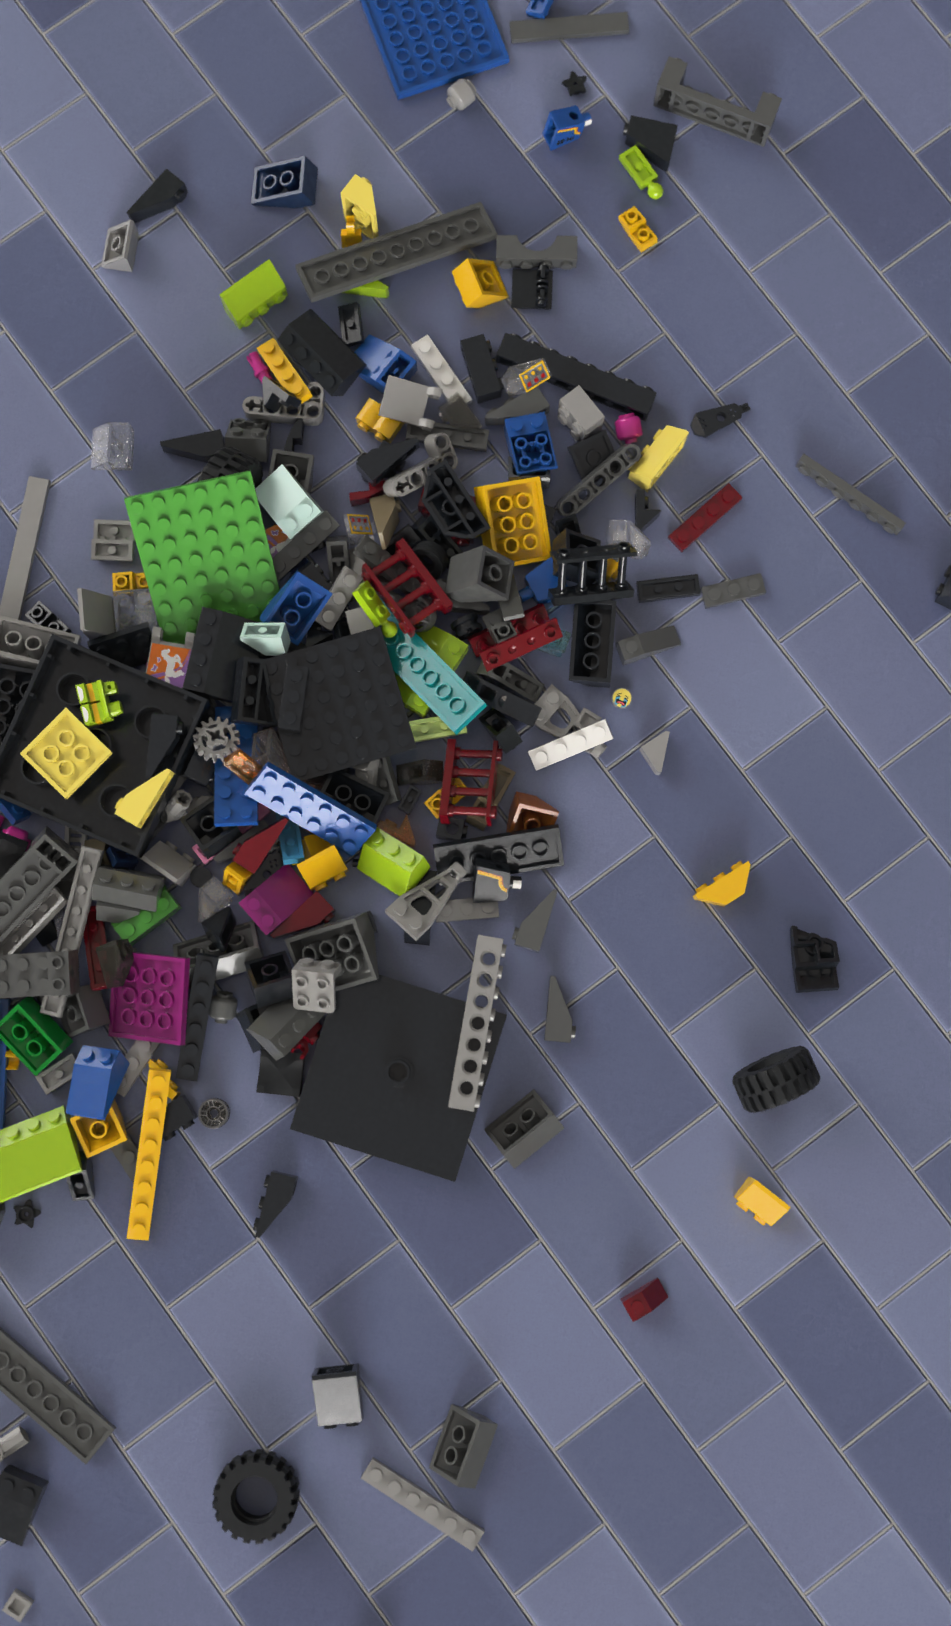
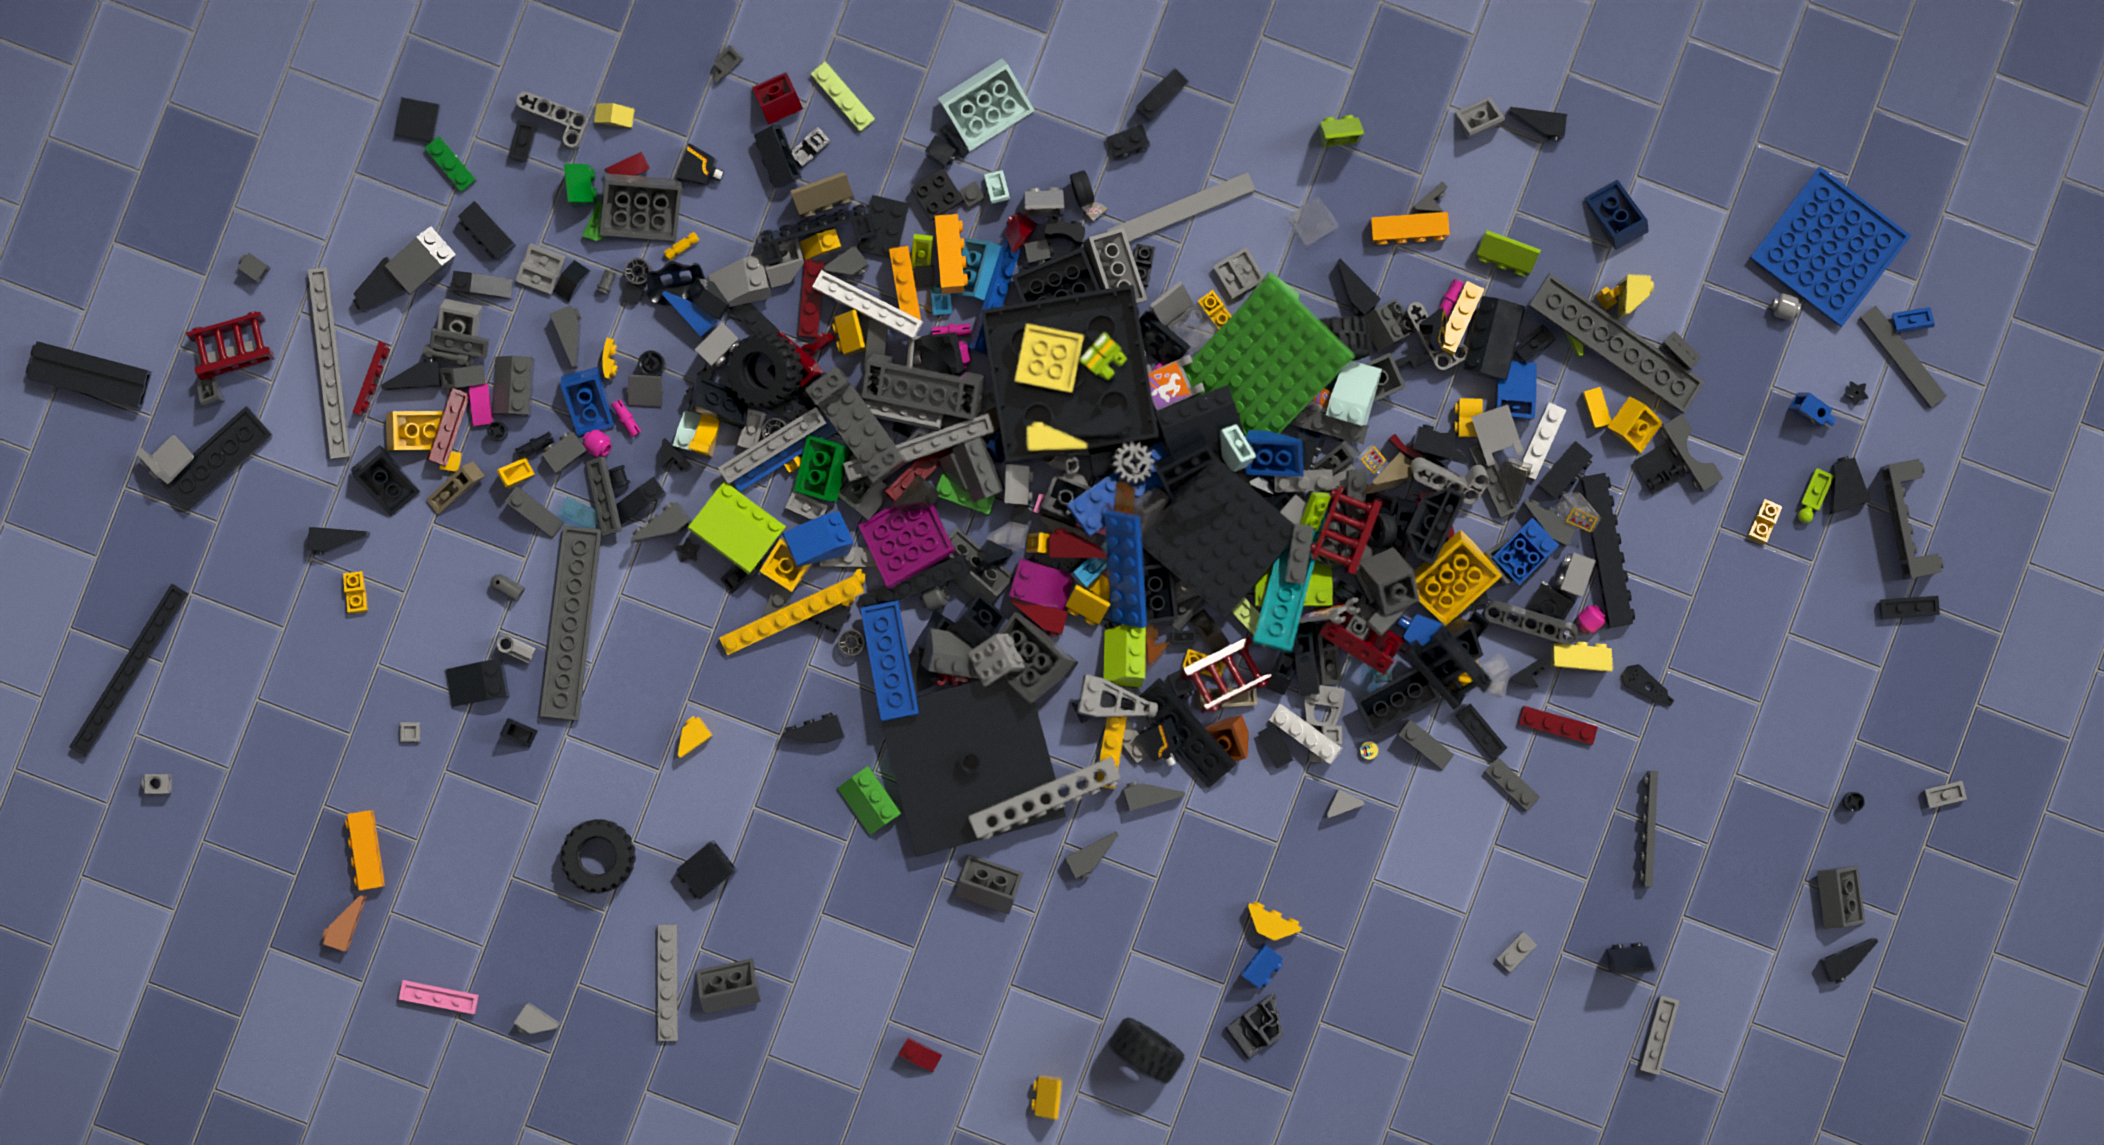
camera: 60 degrees right, 5 degrees up
(49, 371) = (1341, 131): none -> lime slope
(86, 1497) = (518, 732): none -> black slope
(165, 336) = (1428, 204): none -> dark grey slope
(174, 366) = (1409, 227): none -> light orange brick
(202, 1324) = (693, 735): none -> yellow slope
(253, 1088) = (889, 661): none -> blue plate
(372, 1192) = (869, 800): none -> bright green slope
(400, 641) = (1298, 553): none -> dark grey plate
(440, 205) = (1681, 350): none -> dark grey bracket
(442, 308) = (1596, 407): none -> yellow slope
(465, 927) = (1112, 743): none -> yellow plate
(474, 647) = (1331, 612): none -> light grey flag
(564, 779) = (1275, 746): none -> black slope
(760, 920) = (1262, 966): none -> blue slope
(792, 154) = (1909, 607): none -> black plate
(888, 682) = (1516, 951): none -> light grey plate
(939, 302) = (1855, 804): none -> black wheel

